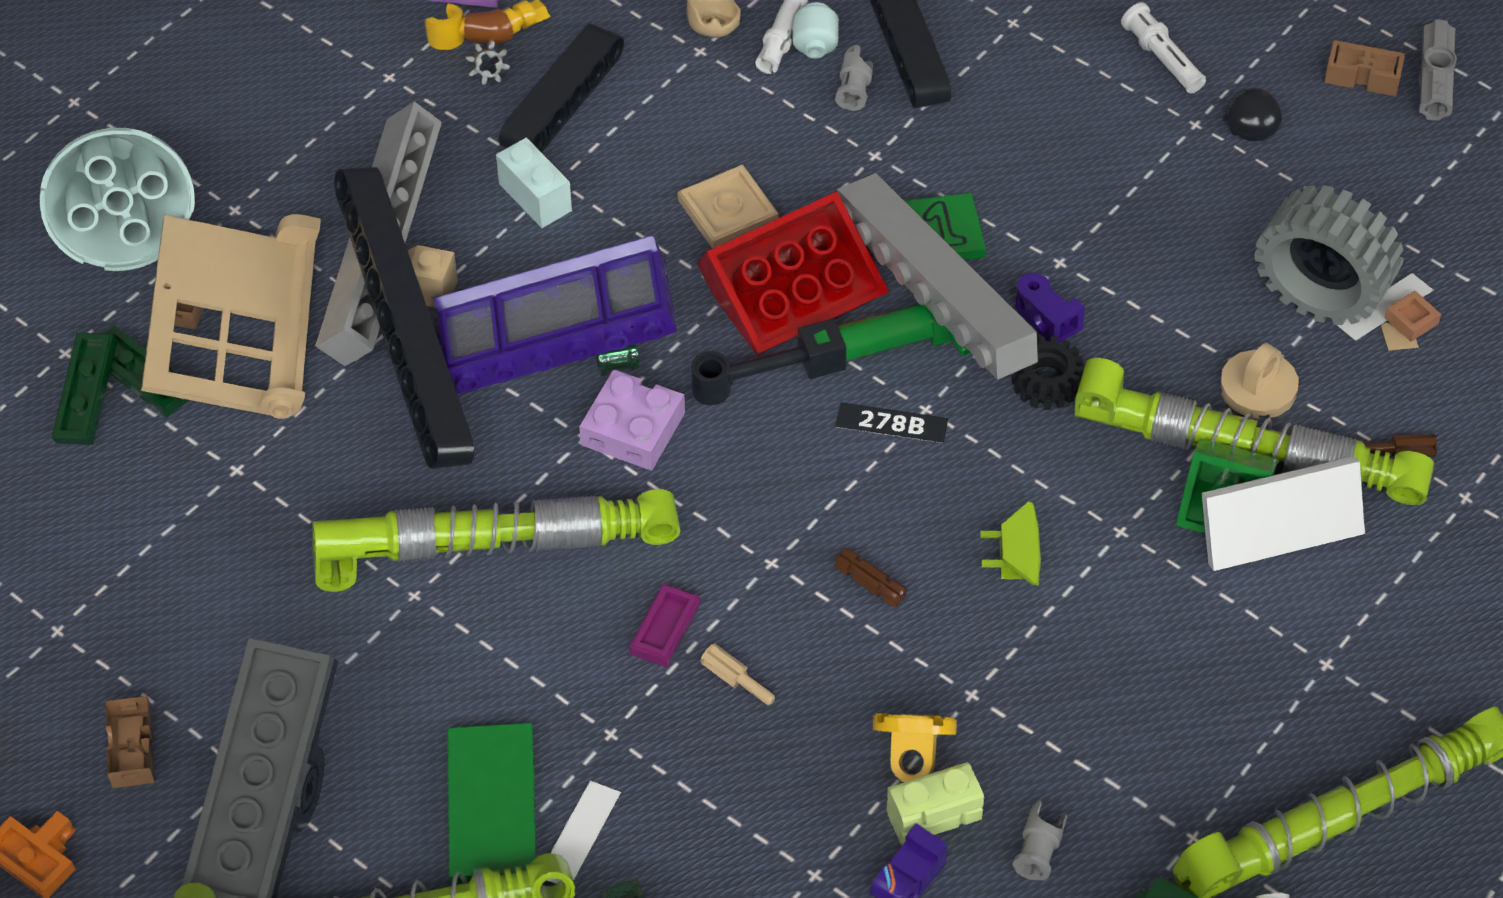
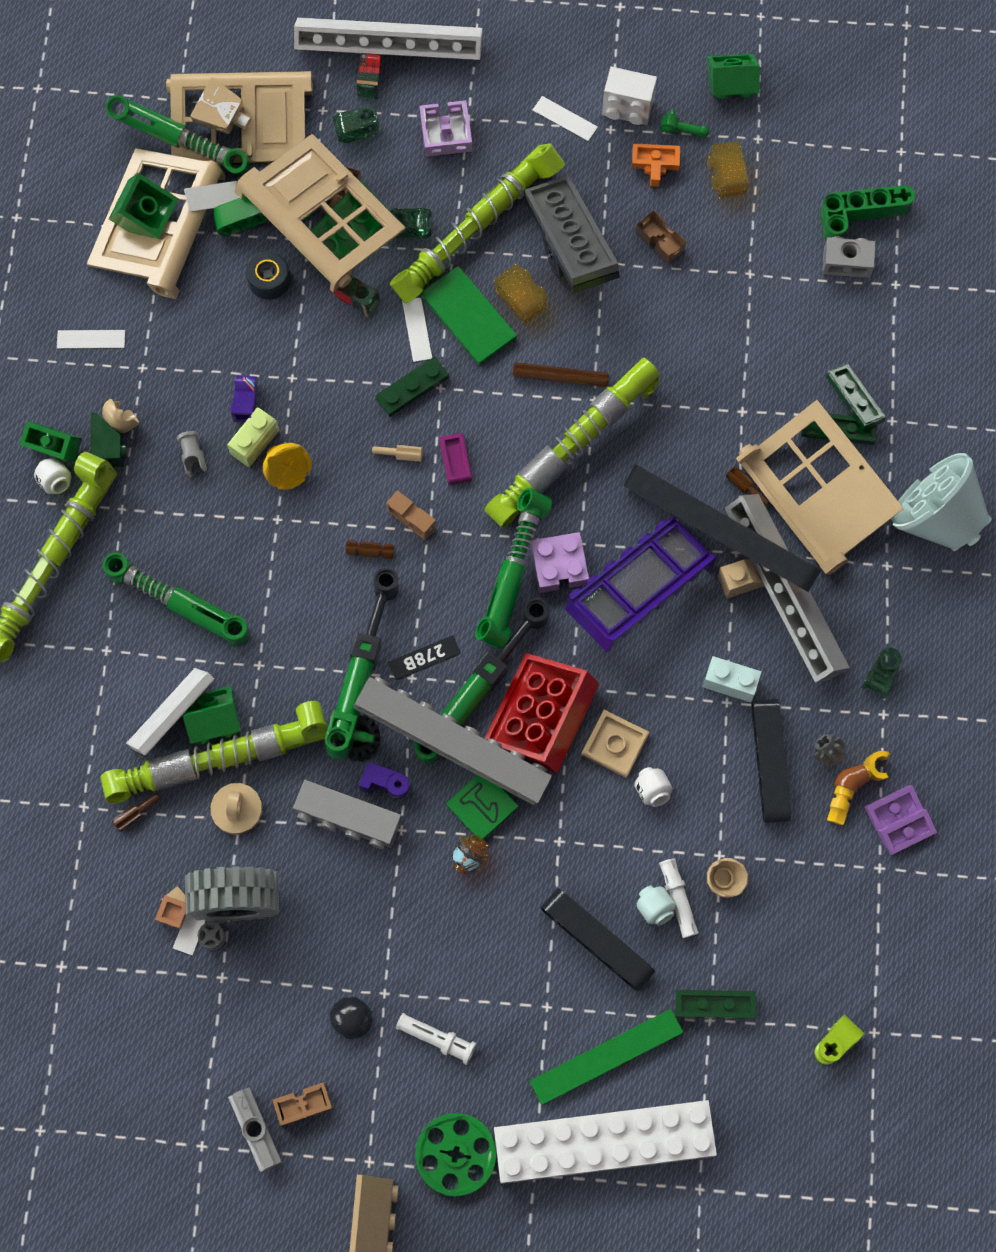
camera: 145 degrees right, 20 degrees up
(317, 380) = (744, 483): none -> reddish brown axle
(349, 102) = (882, 676): none -> clear green piece
(393, 779) = (521, 293): none -> clear yellow brick
(433, 646) = (560, 374): none -> reddish brown axle
(650, 753) = (412, 386): none -> dark green plate
(701, 428) = (494, 626): none -> green piece
(721, 133) = (653, 787): none -> white head
(780, 568) = (410, 515): none -> medium nougat piece
(855, 77) = (607, 885): light grey piece -> none
(975, 435) = (363, 661): none -> green piece
(996, 181) = (469, 854): none -> head
(1018, 546) = (301, 608): lime piece -> none
(1119, 298) = (347, 814): none -> light grey brick
(1187, 656) = (178, 600): none -> green piece

